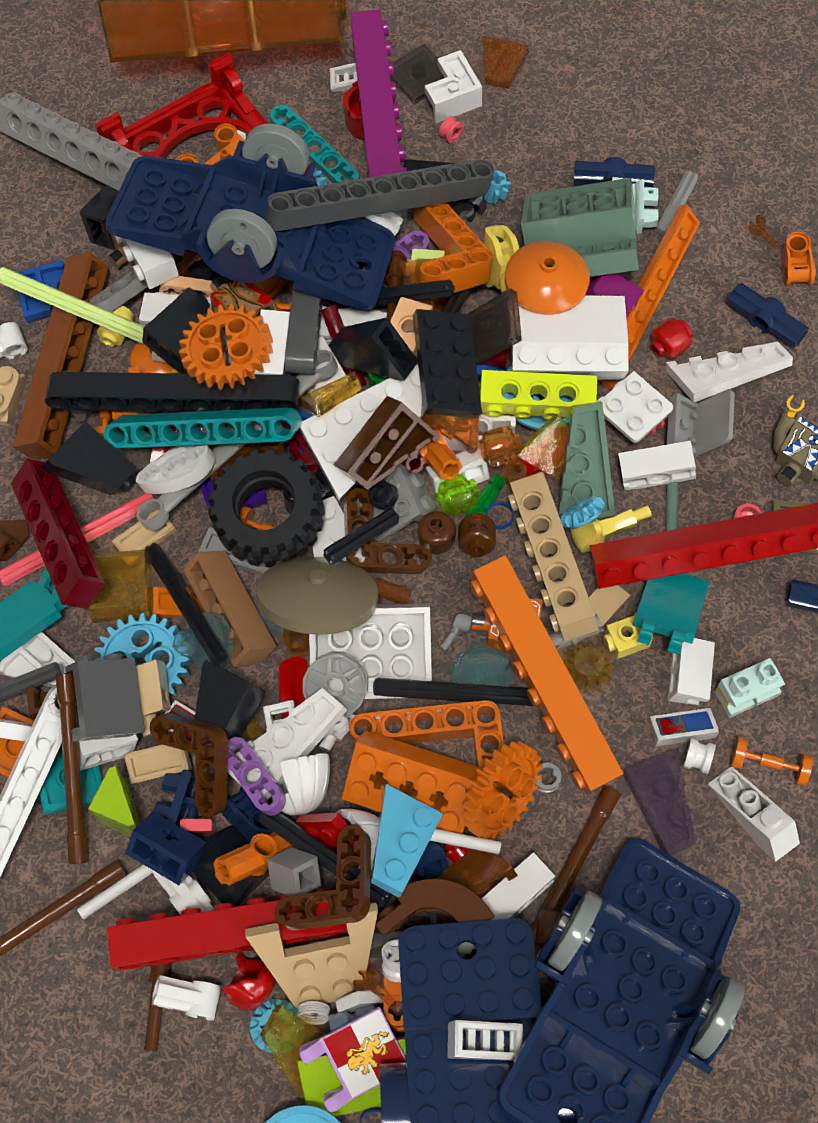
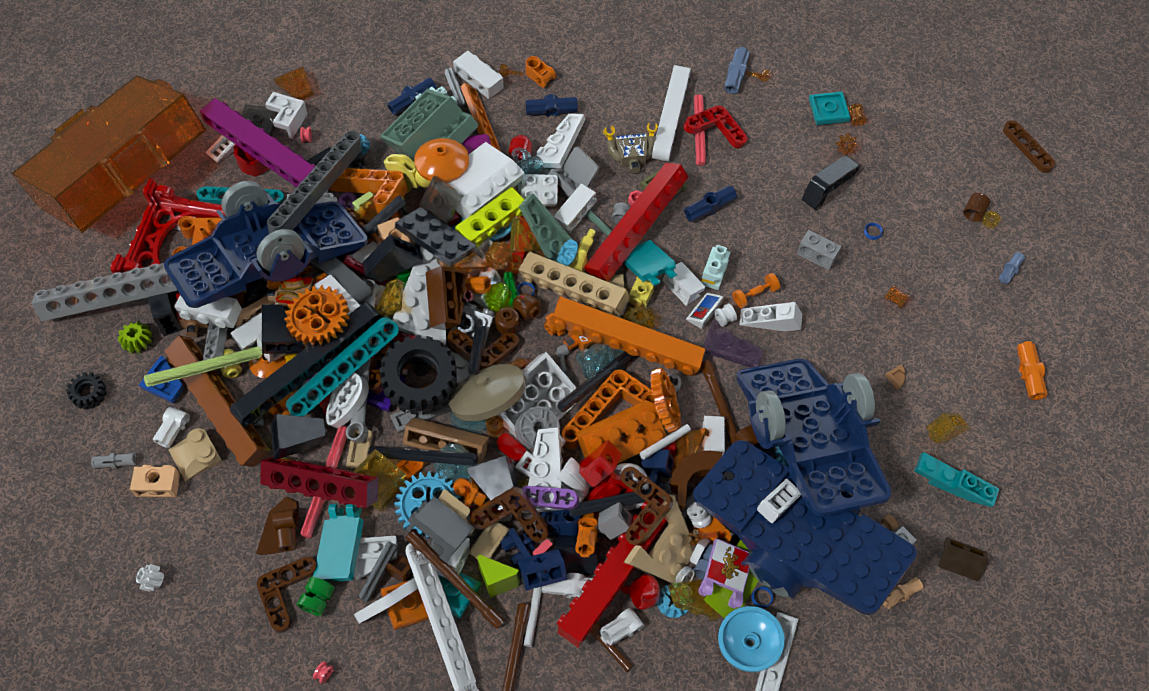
camera: 50 degrees left, 5 degrees down
(60, 219) = (135, 337): none -> lime gear
(187, 677) = (471, 491): none -> orange hips
(326, 792) = (597, 466): none -> red torso
(402, 839) = (649, 458): medium azure wing -> none
(655, 364) = (528, 164): none -> clear light blue tile
(709, 514) = (619, 211): none -> light grey wheel
(720, 207) = (478, 74): none -> white brick

